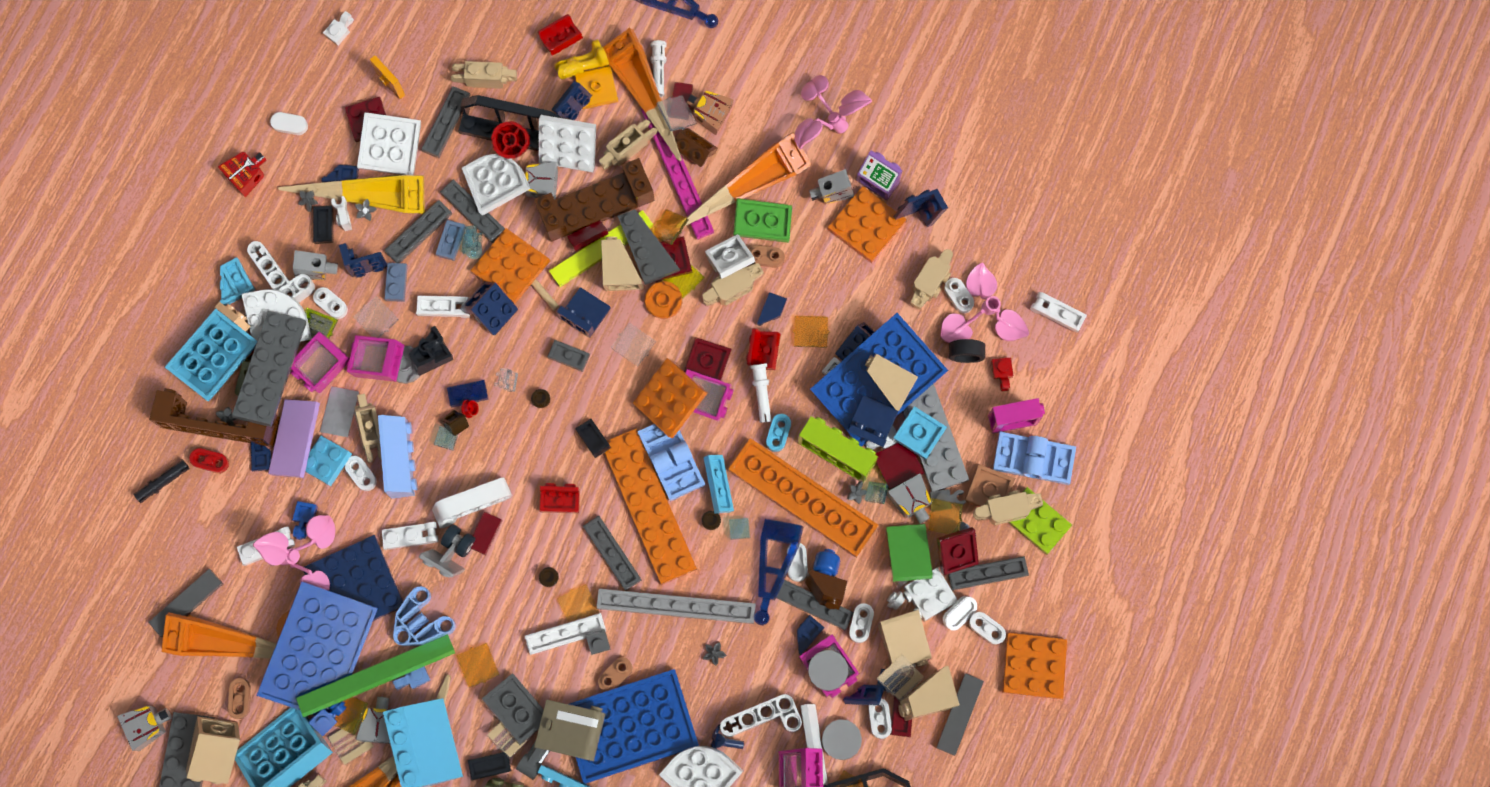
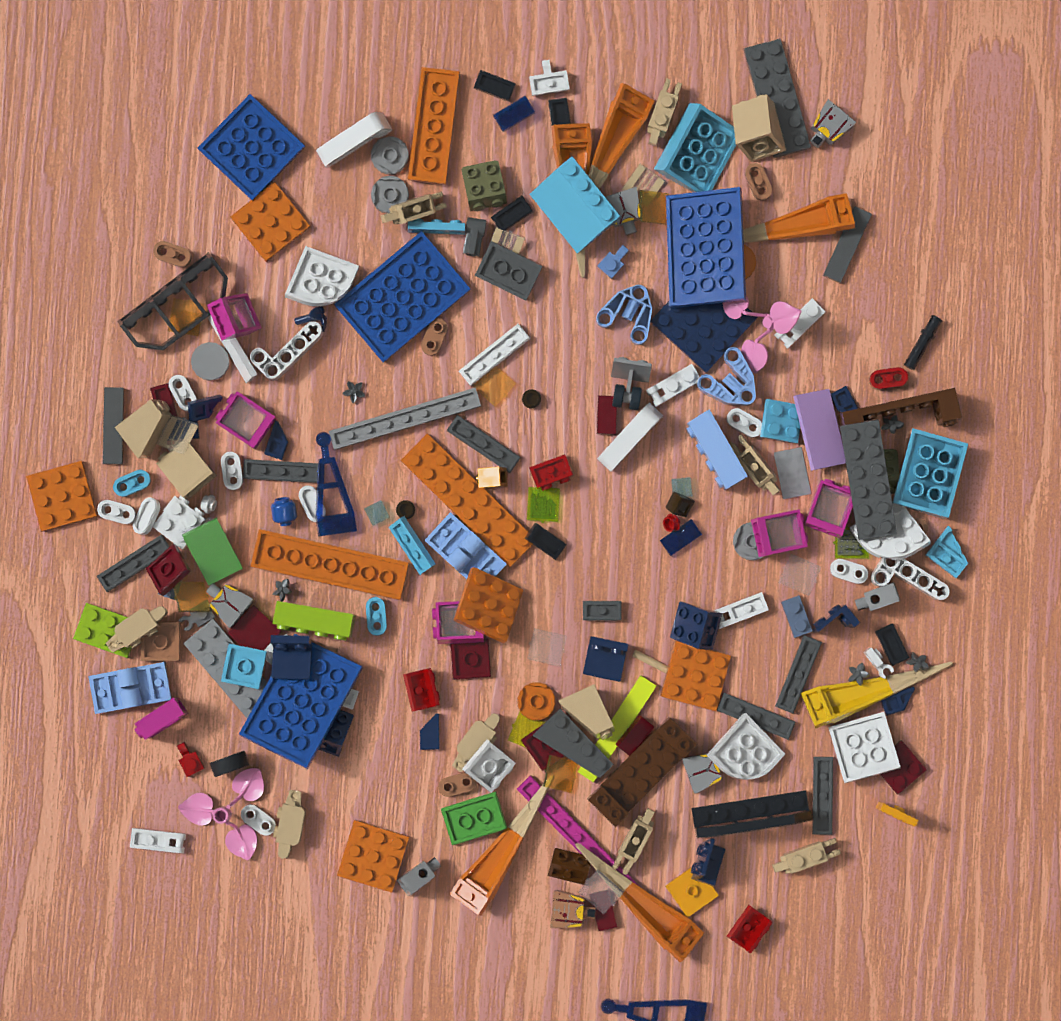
camera: 155 degrees right, 10 degrees up
(229, 312) = (926, 517): light nougat plate -> none
(244, 171) = (991, 664): red torso -> none
(289, 123) = (973, 732): white tile -> none
(303, 514) = (778, 365): blue plate -> none
(324, 720) = (672, 192): plate -> none
(337, 30) = (971, 846): white plate -> none
(339, 522) = (742, 371): none -> light blue connector
(375, 675) = (645, 248): bright green tile -> none
(430, 353) = (732, 560): black slope -> none
(450, 240) = (763, 677): sand blue plate -> none
(472, 242) = (740, 683): clear light blue hips -> none
(478, 665) = (561, 296): clear yellow piece -> none
(507, 379) = (649, 564): clear tile -> none
(510, 140) = (746, 795): red cylinder -> none
(540, 398) = (610, 559): dark brown plate -> none
(567, 143) = (691, 814): white plate -> none
(573, 730) = (449, 271): dark tan door -> none
(577, 64) = (724, 900): yellow piece -> none
(581, 473) = (543, 504): none -> clear neon green piece
(598, 641) = (461, 358): dark grey plate -> none
(617, 516) = (492, 477): none -> brick
(658, 60) = (642, 942): white pin -> none
(761, 383) = (410, 655): white pin -> none
(811, 128) = (430, 964): bright pink plant -> none
(811, 331) = (385, 727): clear yellow piece -> none
(826, 589) = (274, 487): reddish brown slope -> none
(828, 670) = (244, 413): light grey tile -> none
(876, 492) = (263, 596): clear light blue tile -> none
(879, 175) = (378, 907): slope -> none
(891, 379) = (287, 700): tan slope -> none
(928, 204) = (317, 894): dark blue bracket -> none
(961, 648) = (132, 483): none -> medium azure plate

